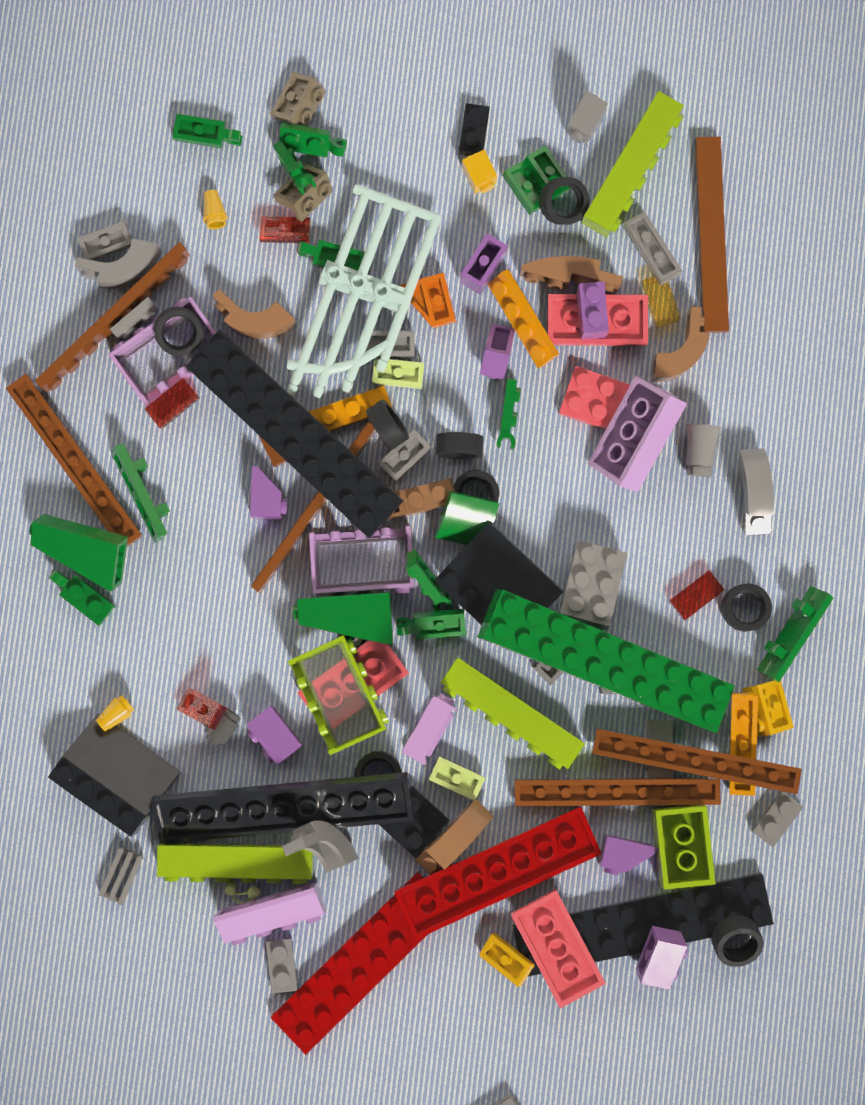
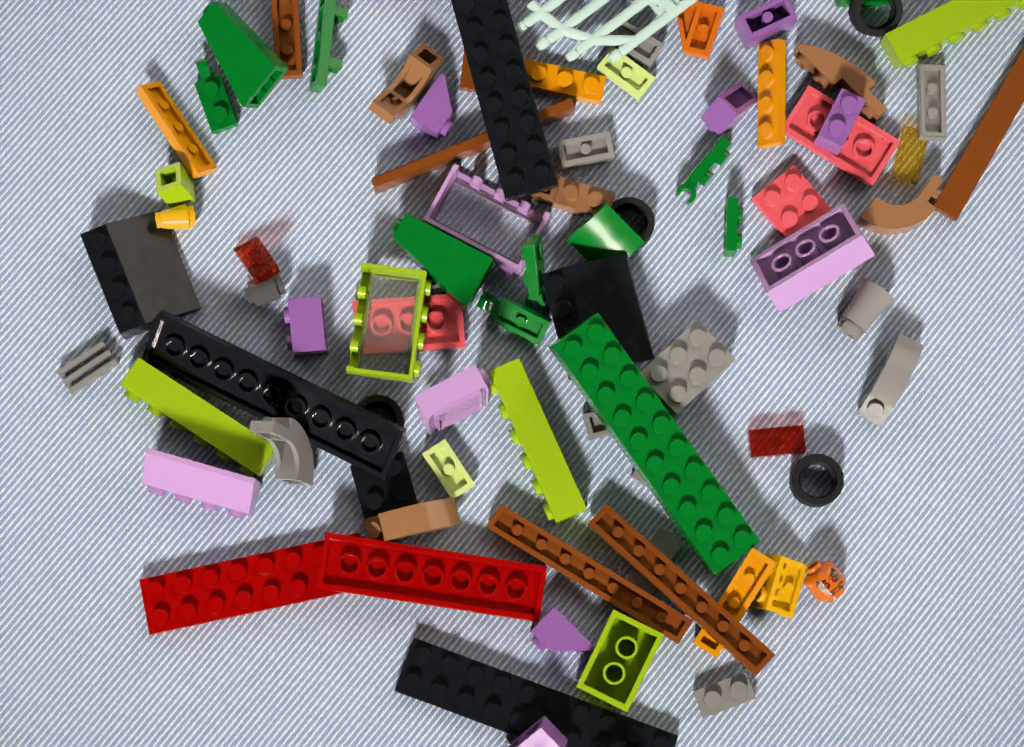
camera: 30 degrees right, 5 degrees down
(68, 641) = (176, 129): none -> light orange plate
(97, 688) = (174, 185): none -> lime brick
(232, 491) = (408, 85): none -> medium nougat arch
(253, 892) = (181, 439): yellowish green piece -> none
(281, 965) = (180, 539): light grey plate -> none
(387, 424) = (587, 110): black tyre -> none
(459, 445) = (641, 169): black tyre -> none
(506, 959) = (389, 662): yellow plate -> none
(553, 438) = (732, 216): none -> green plate
(557, 948) = (443, 680): coral plate -> none
(795, 633) = (846, 532): green hinge -> none
(801, 683) = (824, 581): none -> orange head

